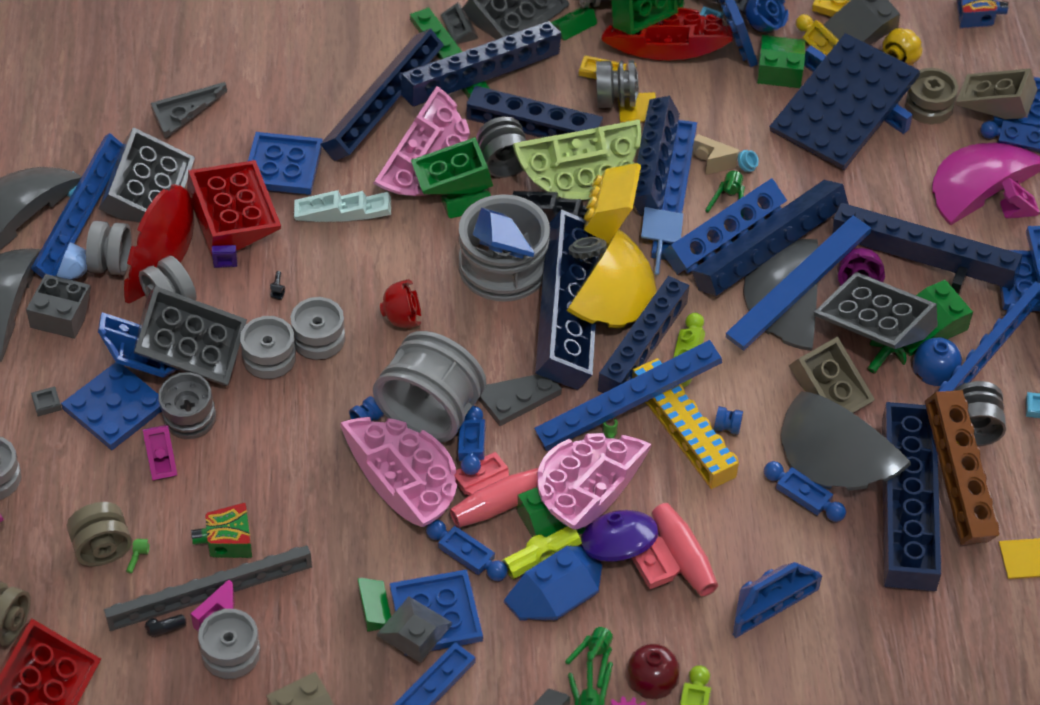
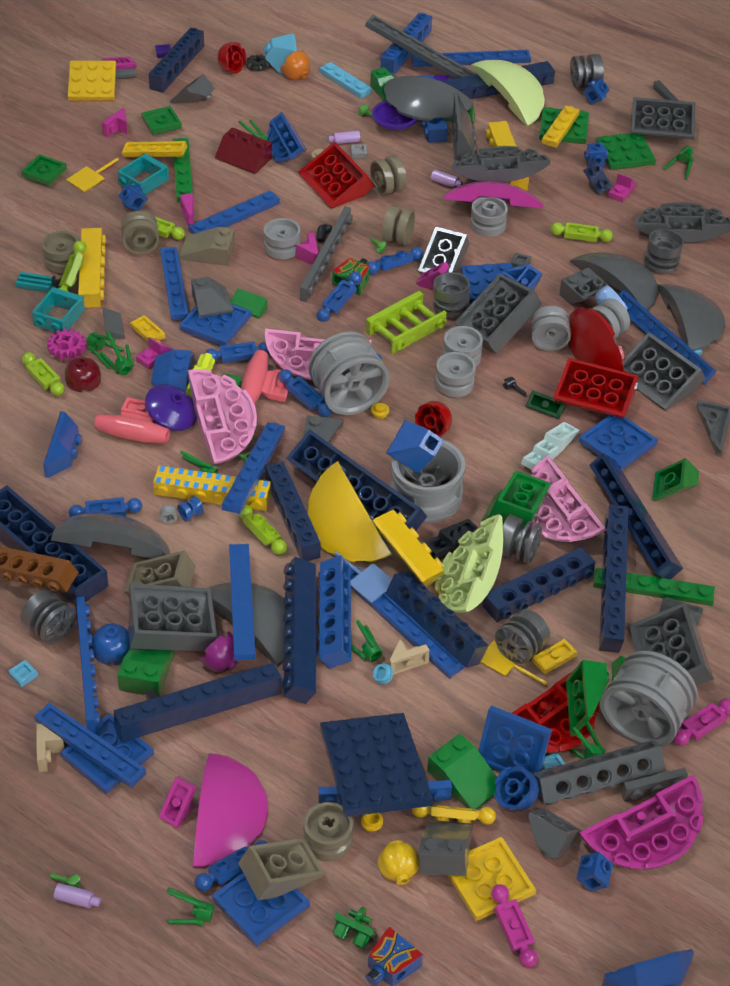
camera: 130 degrees right, 5 degrees down
(105, 470) = (445, 246): none -> dark grey slope
(158, 513) = (398, 259): none -> blue plate
(224, 256) = (557, 372): dark purple tile -> none
(263, 450) = (399, 310): none -> lime fence
(280, 249) = (545, 404): none -> dark green slope
(282, 515) = (339, 296): none -> blue plate
(306, 93) = (675, 479): none -> green slope
(518, 667) = (147, 328): none -> yellow plate
(544, 632) = (148, 356): none -> dark pink slope
(587, 247) = (375, 491): dark grey gear -> none
(666, 445) = (205, 467): none -> green plant
(754, 433) = (168, 514): none -> light grey bush
(981, 39) = (345, 924): none -> green hips

